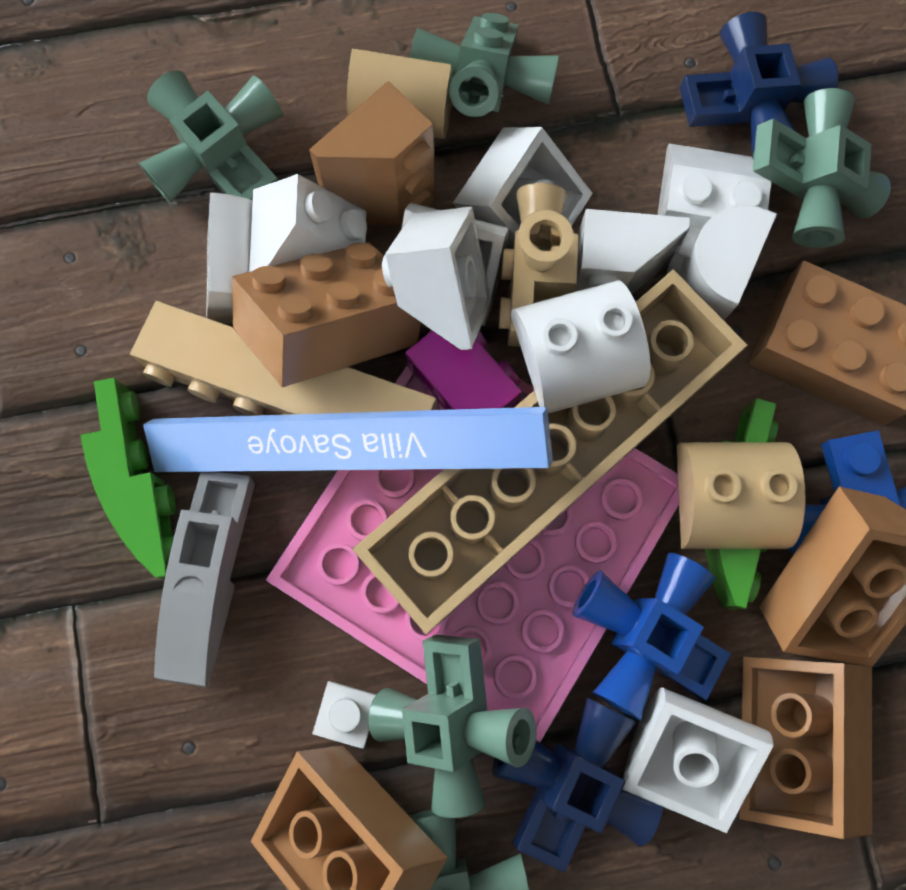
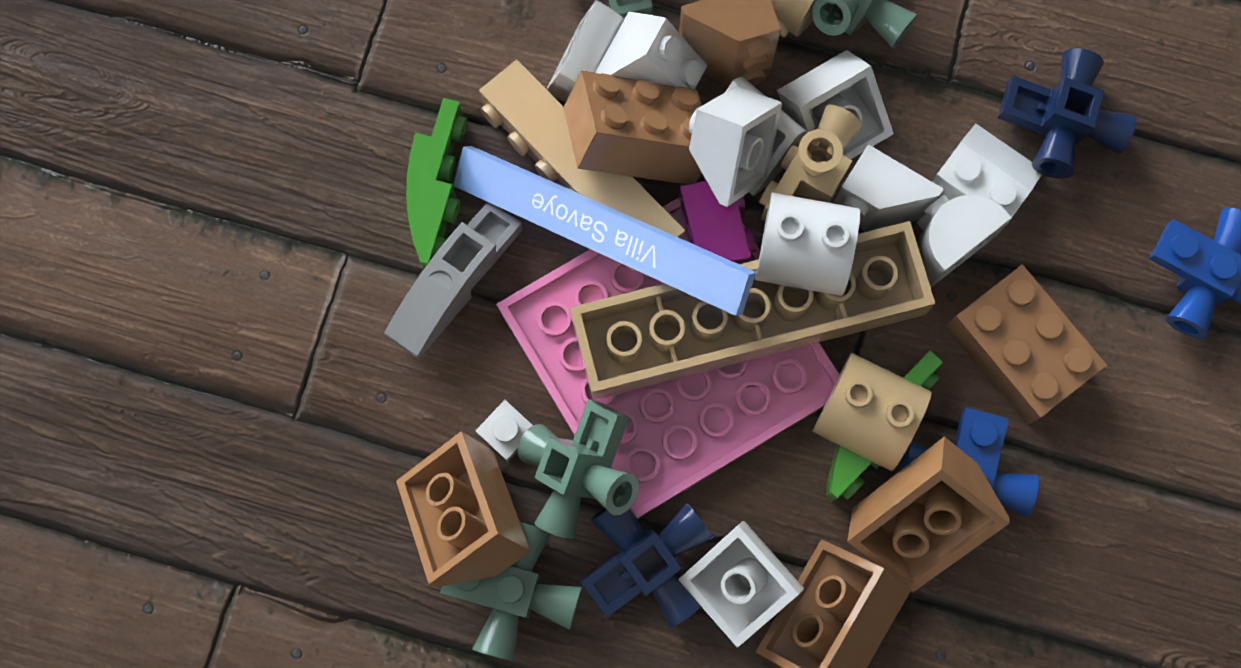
camera: 30 degrees right, 0 degrees up
(654, 635) = (760, 485): blue brick -> none
(822, 168) = (1076, 200): sand green brick -> none

